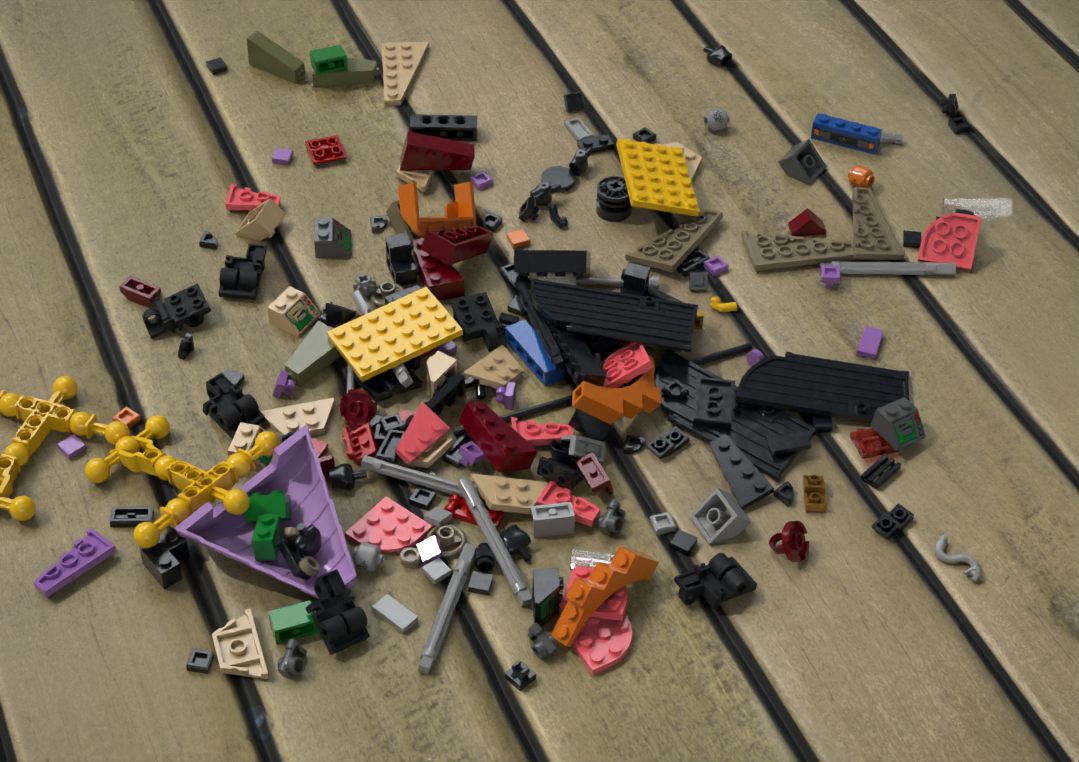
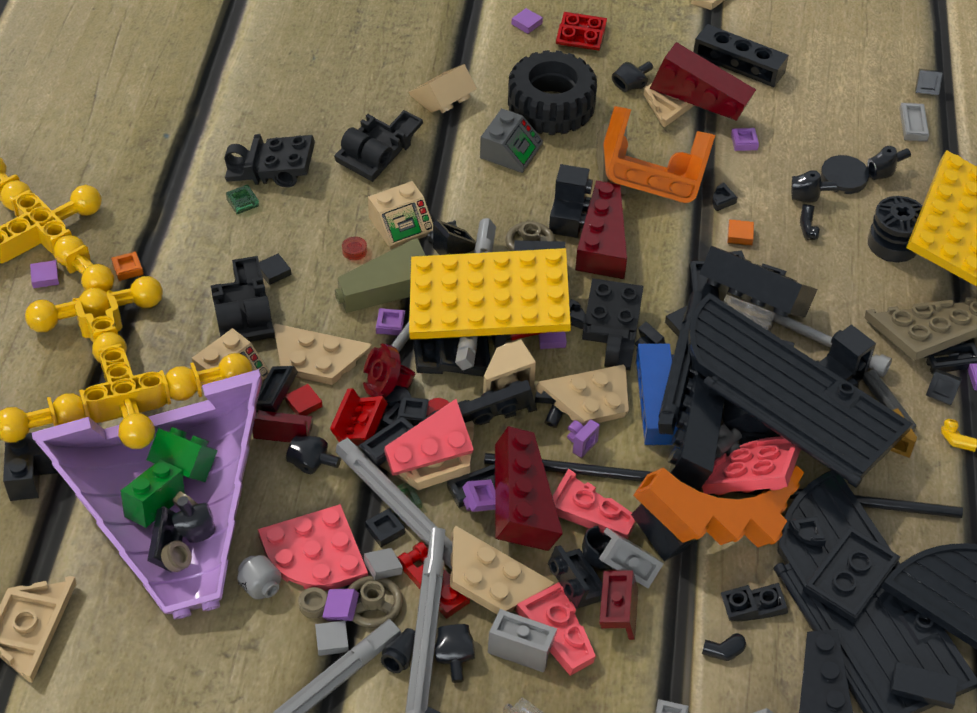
camera: 30 degrees right, 5 degrees up
(127, 516) = (38, 393): black tile -> none
(139, 291) = (252, 118): dark red slope -> none
(171, 345) = (242, 199): none -> clear green tile
(186, 346) = (252, 206): black tile -> none
(208, 241) = (372, 90): black tile -> none
(246, 199) = (447, 55): coral wing -> none
(275, 345) = (354, 248): none -> clear red tile
(283, 385) = (323, 301): medium lavender tile -> none
(292, 622) = (110, 621): brick -> none
(293, 659) = (68, 676): dark grey plate -> none
(334, 380) = (390, 321): none -> medium lavender tile
(336, 614) = (156, 643): black plate -> none
(339, 194) = (556, 73): none -> black tyre
(364, 284) = (507, 215): light grey gear -> none
(378, 223) = (581, 144): dark grey tile -> none
(380, 167) = (631, 77): none -> black piece
(395, 613) = (240, 672): light grey tile -> none
(457, 243) = (647, 209): dark red wedge -> none
(480, 583) = (373, 684): tile -> none
(528, 210) = (777, 200): black tile -> none
(597, 143) = (924, 147): black plate -> none
(613, 519) = (600, 681): dark grey plate -> none
(633, 444) = (706, 581): black tile -> none
(669, 474) = (727, 649): none -> black arm
(754, 357) = (955, 533): medium lavender tile -> none

